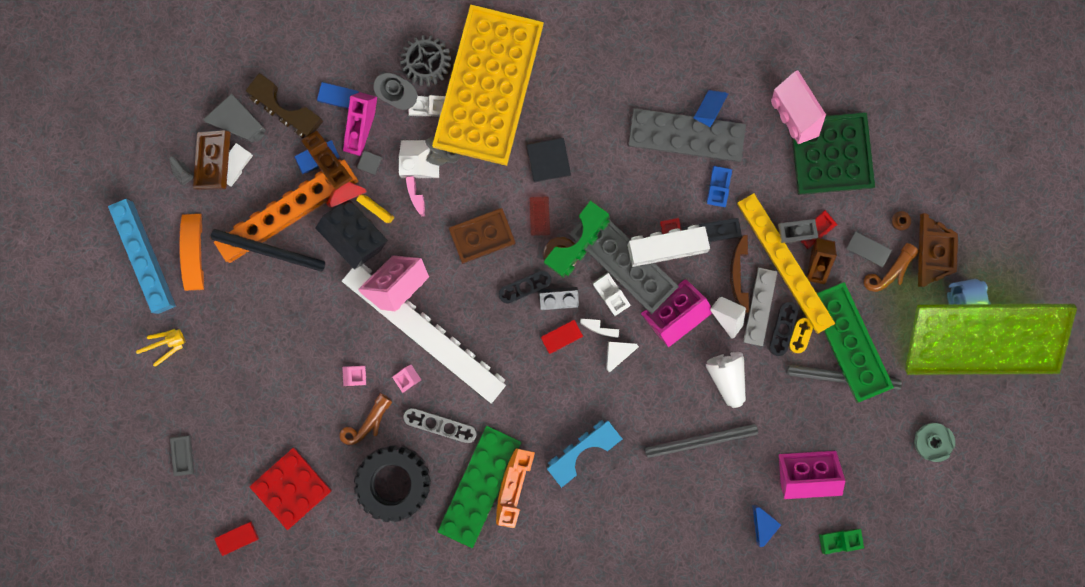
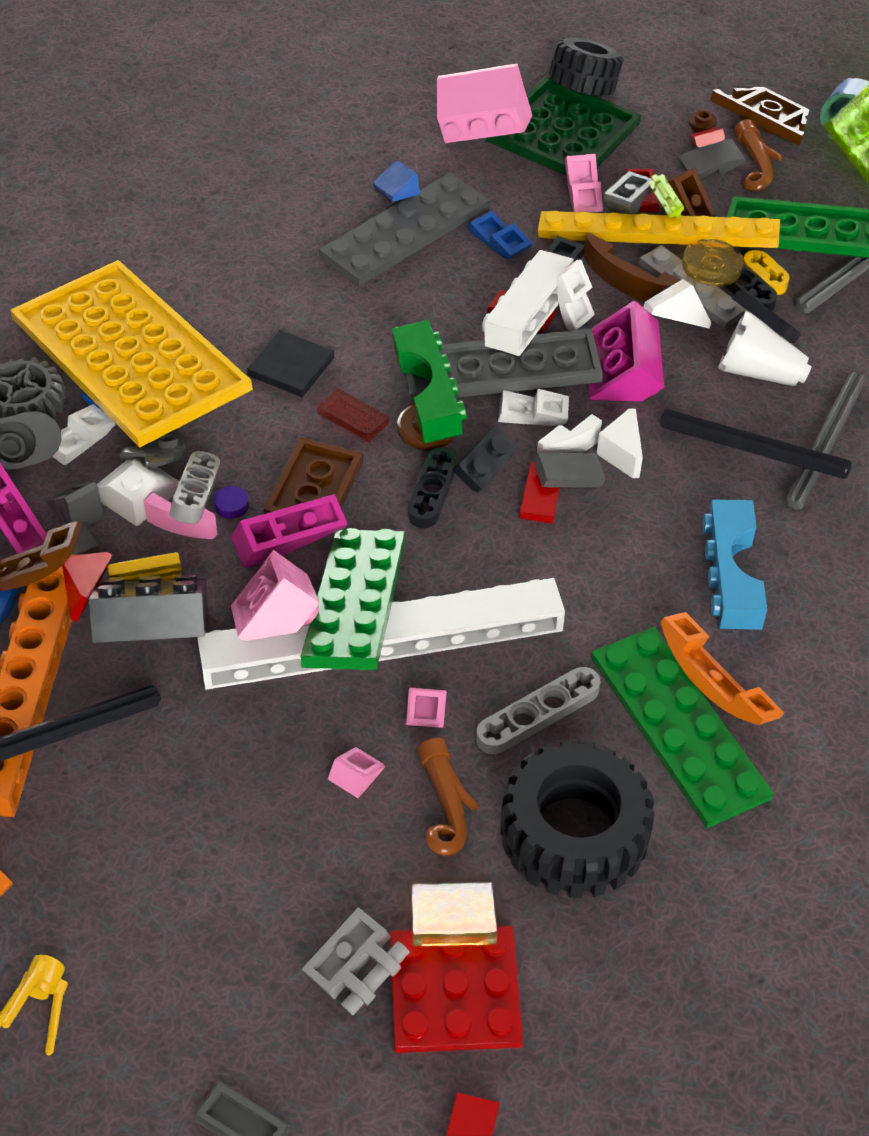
camera: 45 degrees left, 35 degrees down
(270, 441) = (345, 956): none -> light grey plate
(316, 466) = (453, 914): none -> clear yellow tile
(387, 143) = (78, 503): none -> dark grey slope
(426, 312) = (354, 600): none -> plate
(430, 190) = (195, 487): none -> light grey beam
(442, 250) = (287, 529): none -> dark pink slope
(445, 207) = (231, 502): none -> dark purple tile
(581, 341) = (569, 469): none -> dark grey tile
(666, 413) = (756, 444): none -> black axle
(693, 263) = (572, 296): none -> white slope
(755, 364) = (767, 316): none -> black tile
(779, 308) = (712, 262): none -> clear yellow tile
(791, 200) = (583, 183): none -> bright pink slope
(804, 255) = (666, 196): none -> lime axle
(880, 237) = (707, 137): none -> tile
(898, 130) = (586, 66): none -> black tyre

